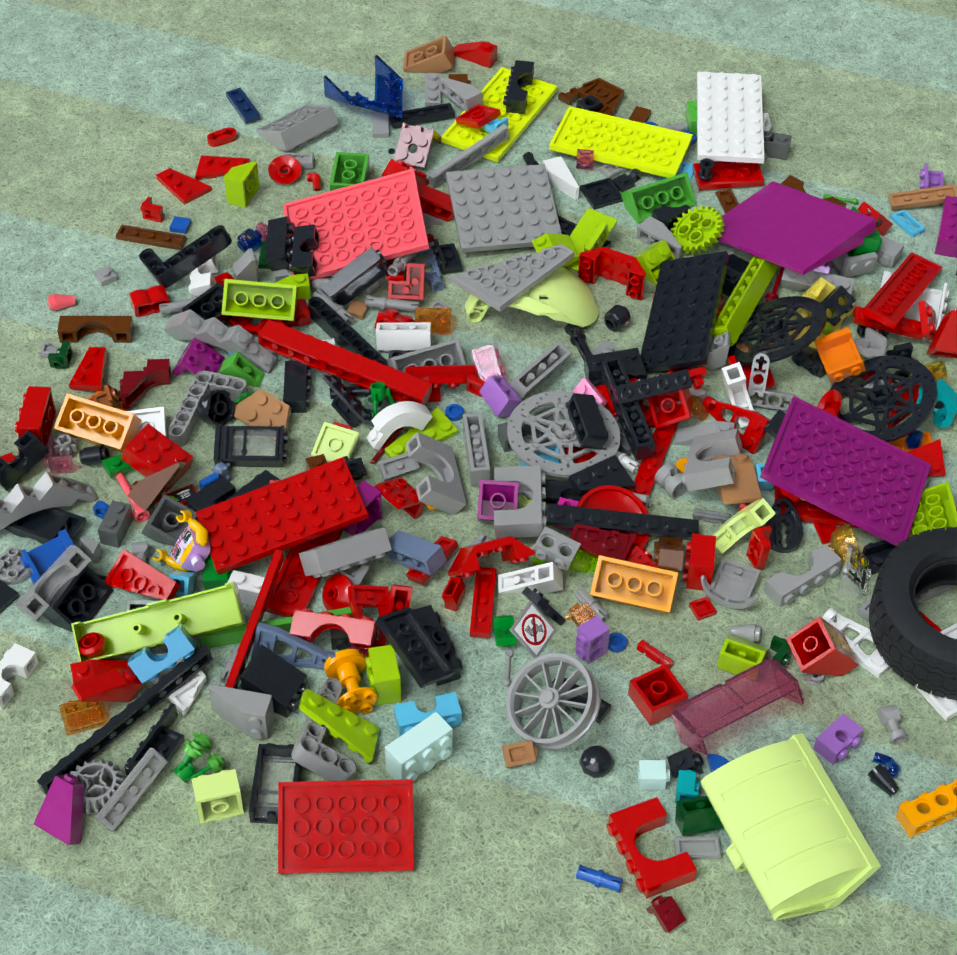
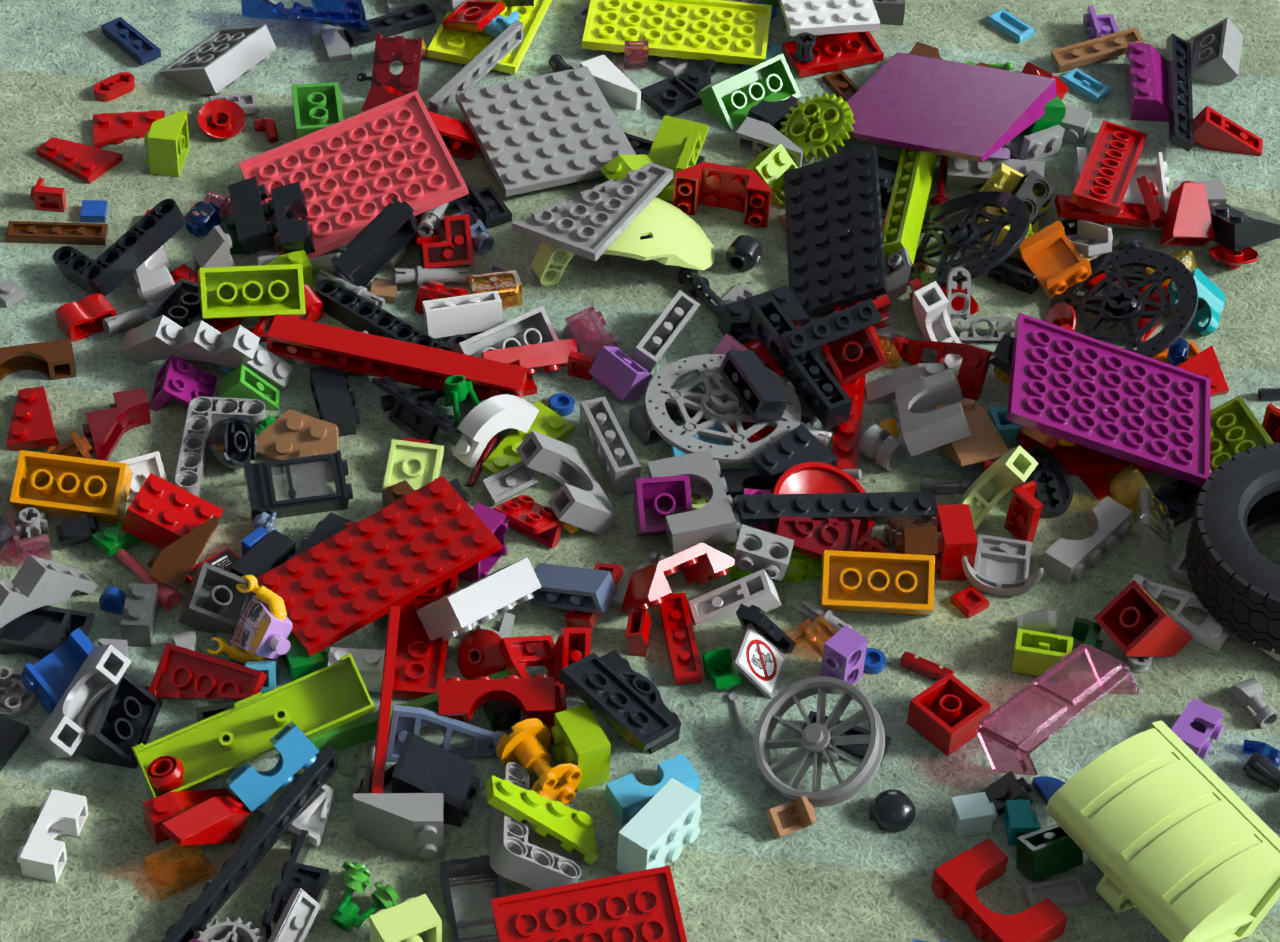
camera: 15 degrees left, 5 degrees down
(865, 170) = (1010, 26): none -> medium azure tile

